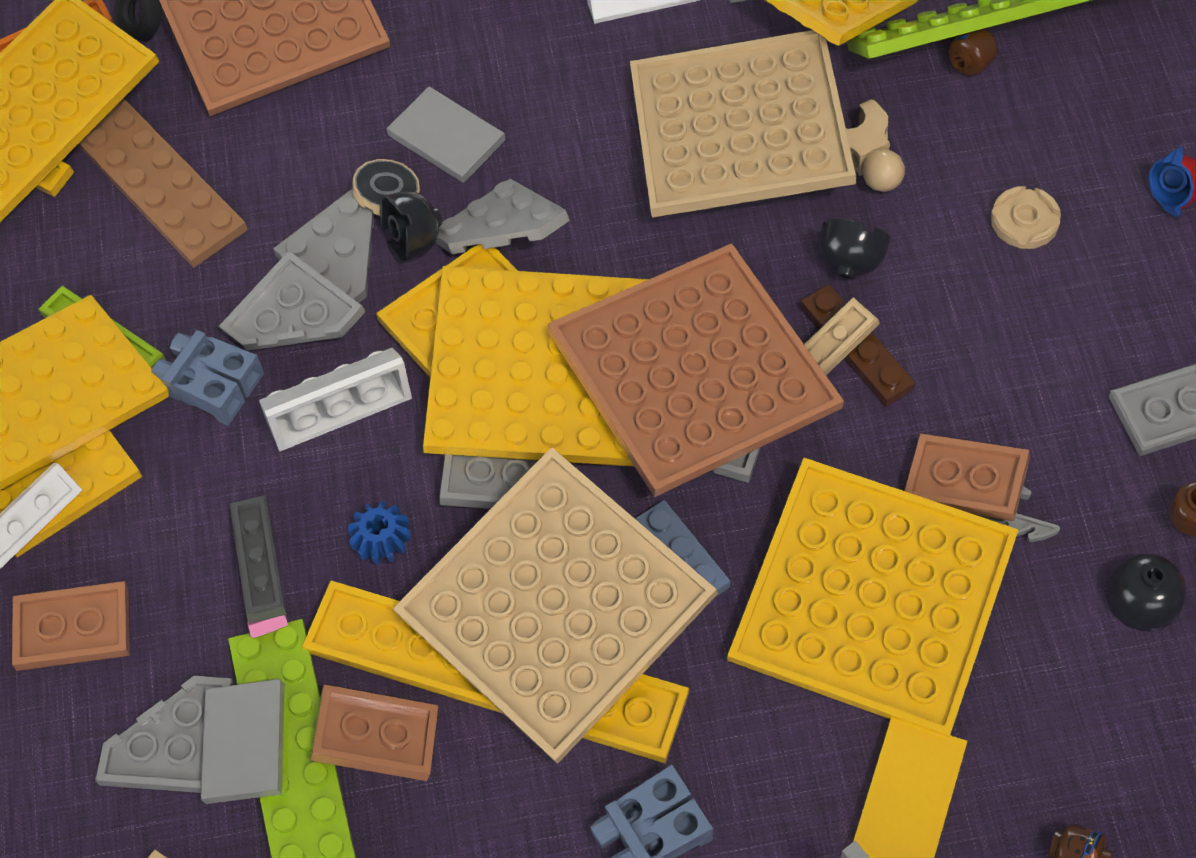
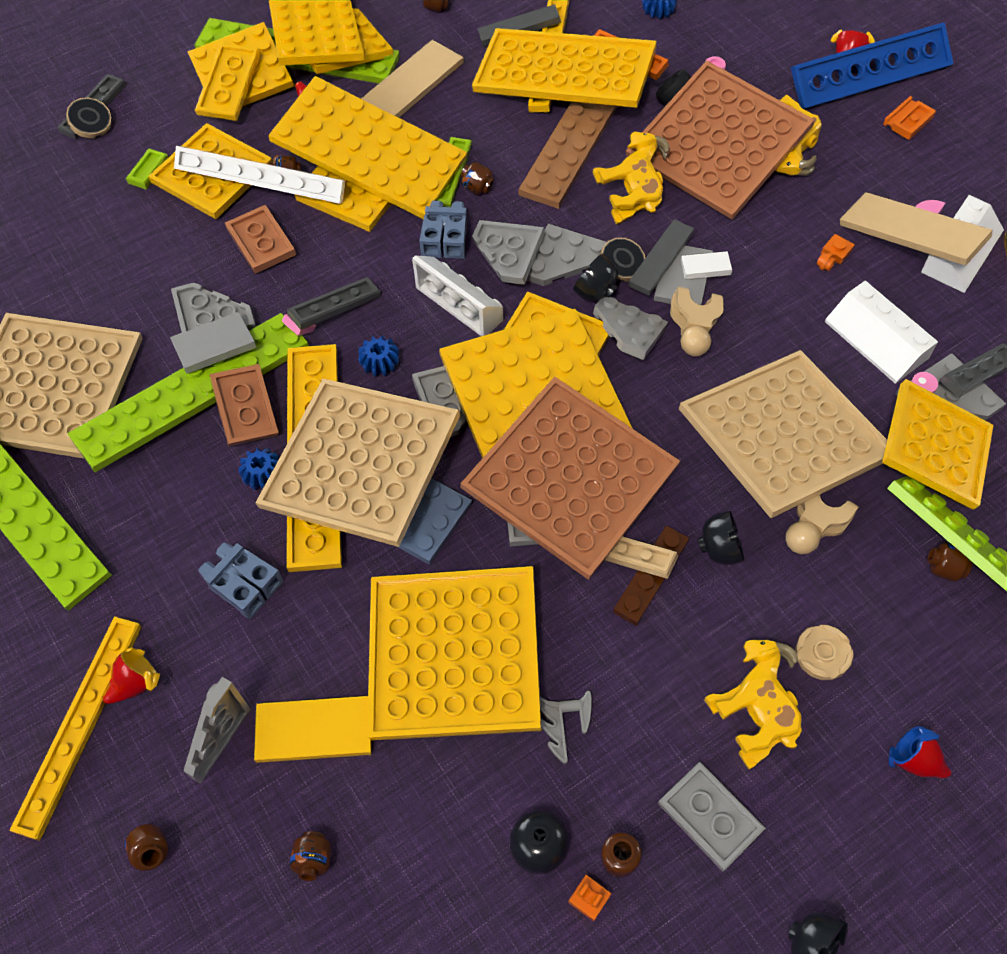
camera: 65 degrees right, 0 degrees up
(142, 301) = (477, 178): none -> reddish brown head
(266, 112) = (638, 175): none -> yellow animal
(410, 143) = (661, 257): none -> dark grey tile
(451, 101) = (706, 265): none -> white tile
(473, 749) = (257, 467): none -> blue gear
(528, 146) = (695, 320): none -> tan piece
(969, 475) = (573, 681): nougat plate -> none
(1065, 296) = (765, 701): none -> yellow animal

